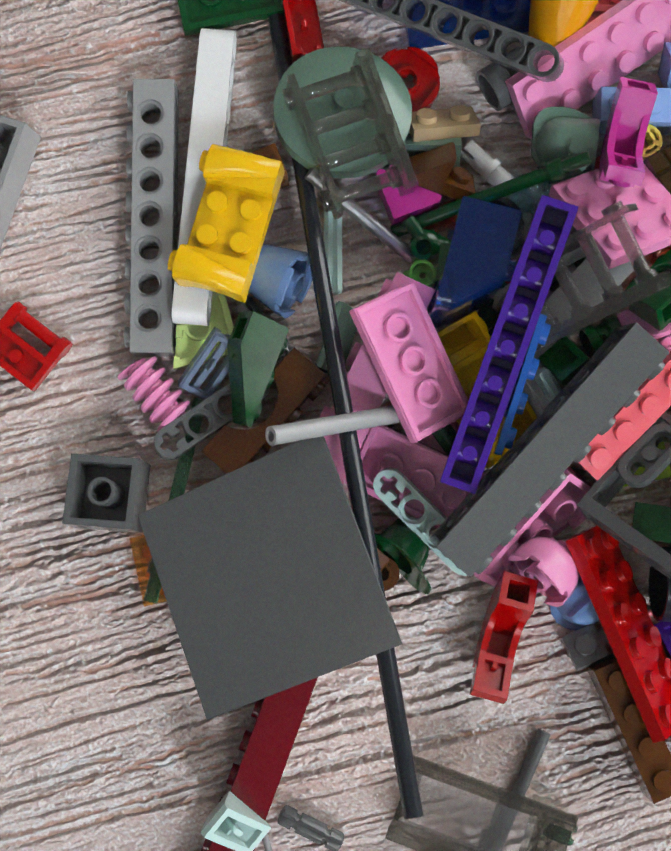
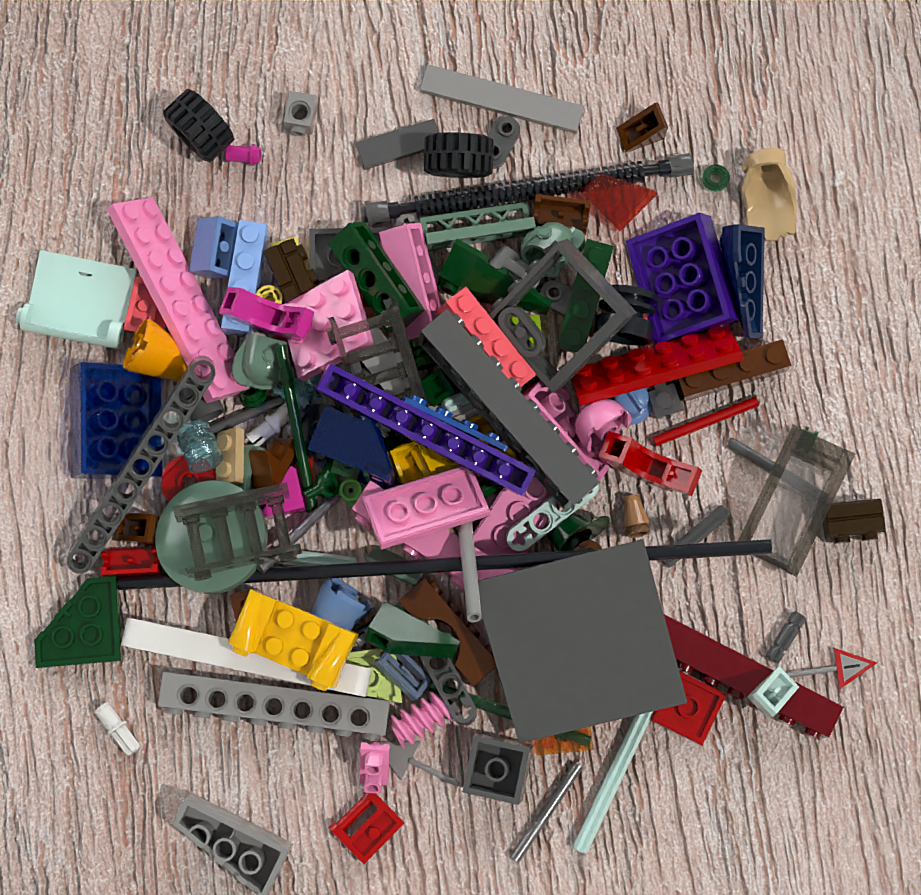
camera: 80 degrees left, 5 degrees down
(66, 558) = (546, 812): none -> flat silver bar
(93, 345) = (374, 766): none -> bright pink hips
(104, 631) = (611, 782): none -> light aqua axle
(105, 40) = (117, 729): none -> white axle
(107, 378) = (401, 758): none -> light grey piece
(212, 737) = (696, 716): none -> red plate
(342, 26) = (137, 529): none -> reddish brown slope
(429, 709) = (701, 530): none -> dark grey axle
(433, 625) = (635, 518): none -> medium nougat cone
(451, 81) = (199, 446): none -> clear light blue wheel
(486, 120) = (246, 414): none -> dark grey bar
(519, 141) = (252, 397): none -> dark green plate
(566, 699) = (705, 421): none -> red bar

